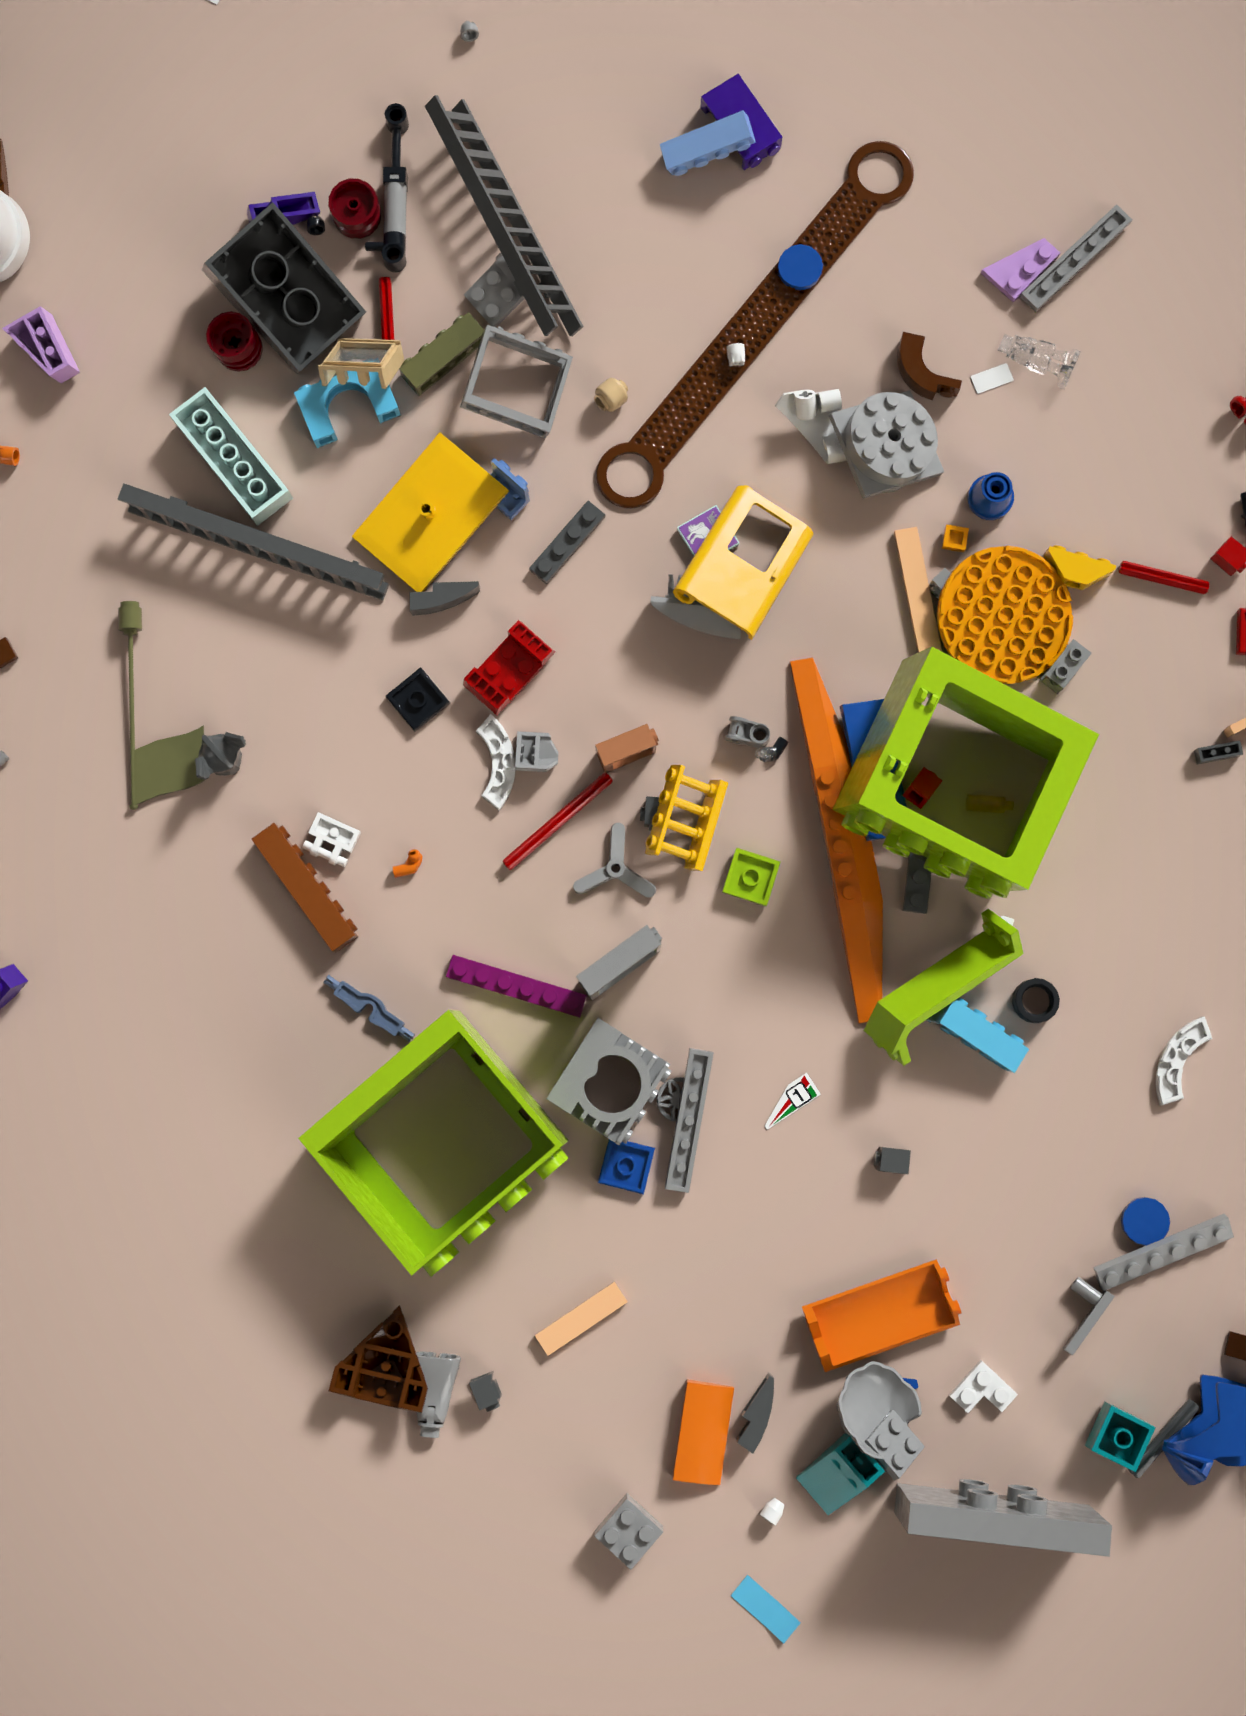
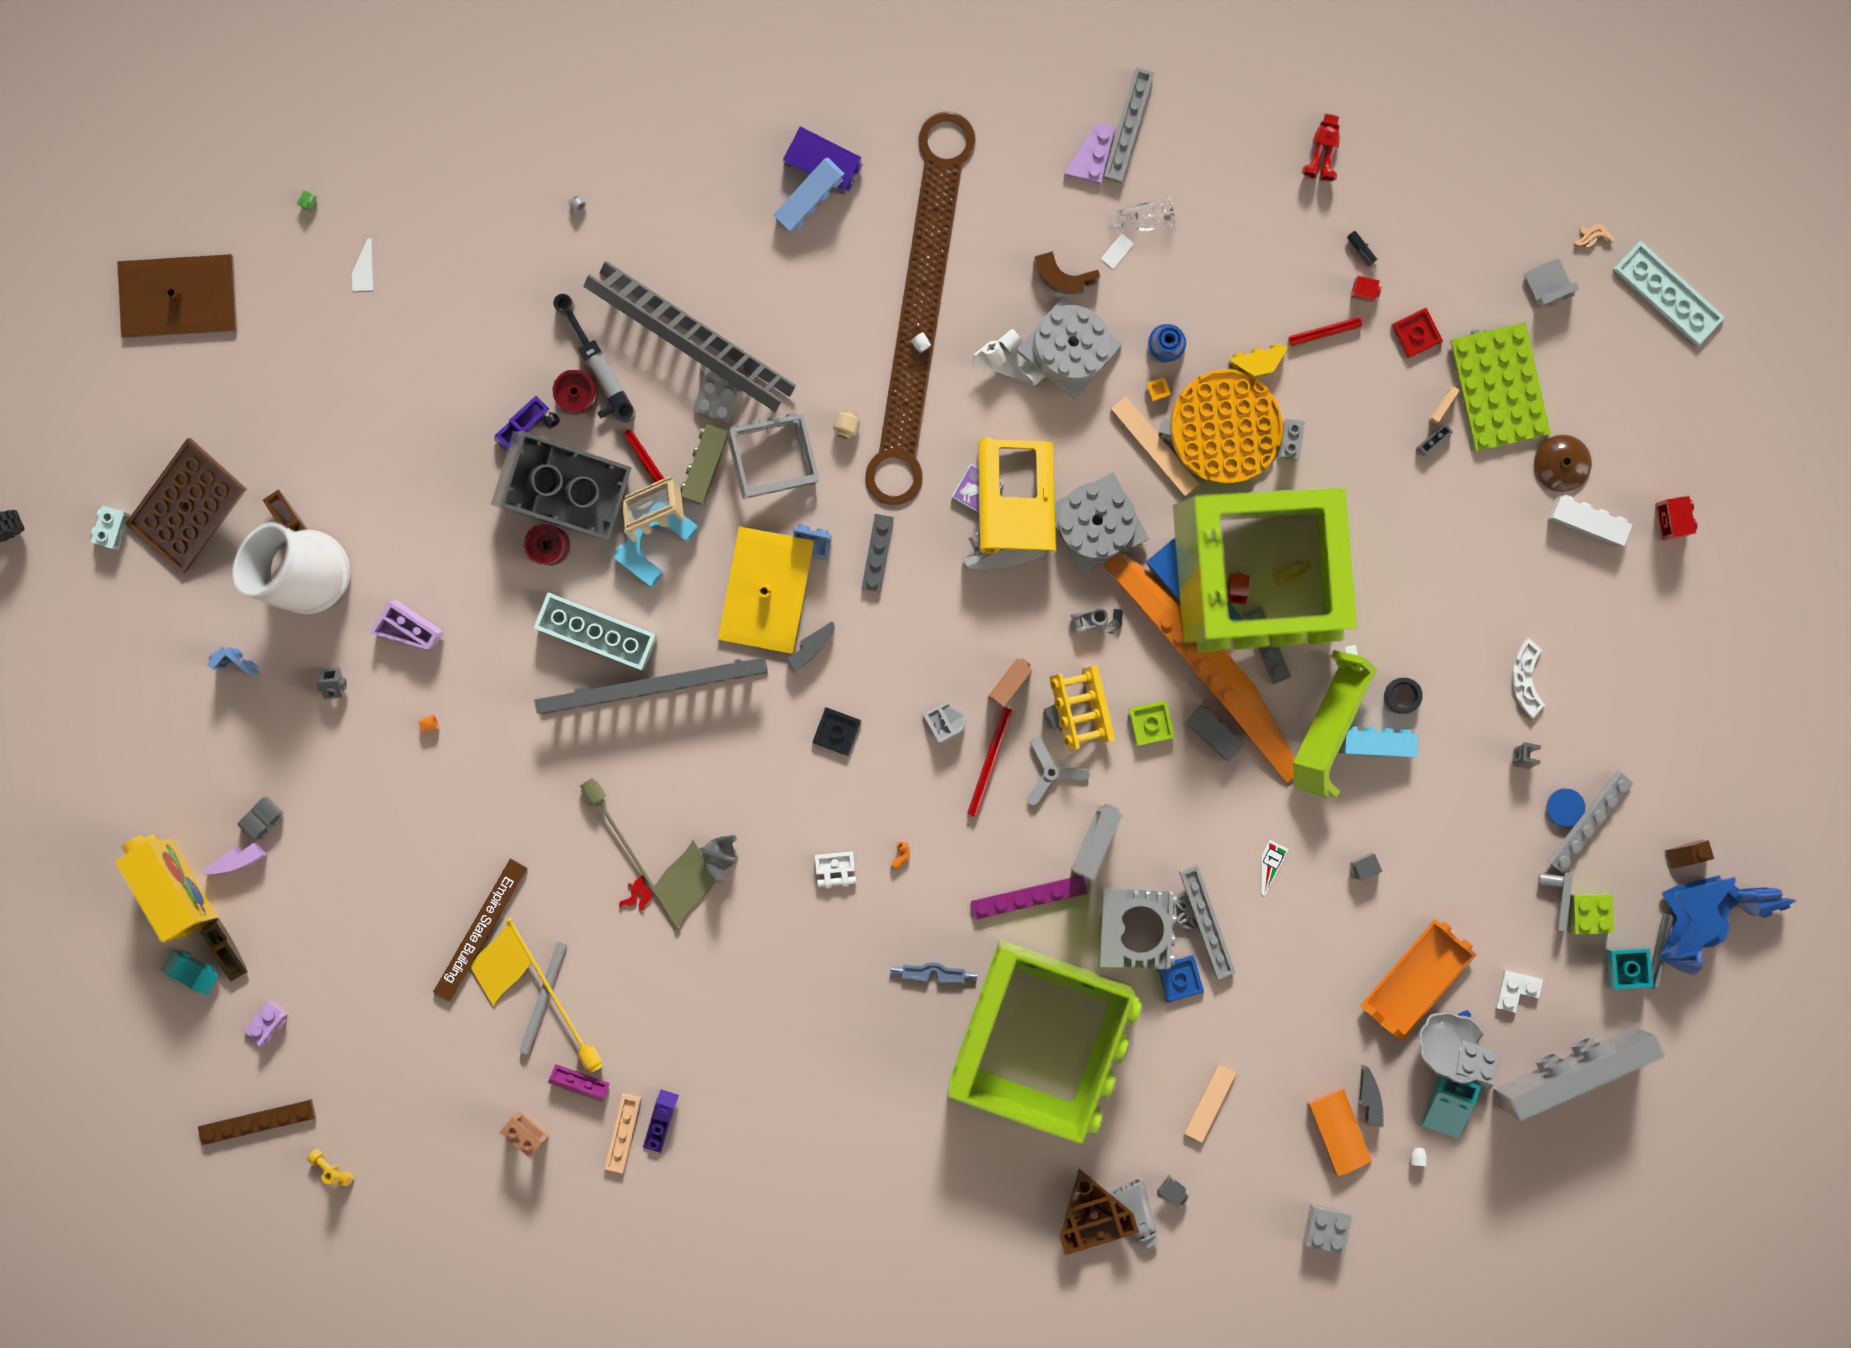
camera: 30 degrees left, 5 degrees up
(122, 749) = (645, 892): none -> red piece
(305, 888) = (837, 914): dark orange brick -> none
(502, 762) = (924, 740): white tile -> none
(508, 668) = (890, 671): red plate -> none
(765, 1609) = (1451, 1226): medium azure sticker -> none
(797, 656) = (1096, 544): none -> light grey piece
(800, 267) = (929, 248): blue tile -> none
(812, 925) = (1215, 733): none -> dark grey brick
(1110, 1352) = (1591, 913): none -> lime brick
(1128, 1139) = (1522, 758): none -> dark grey window

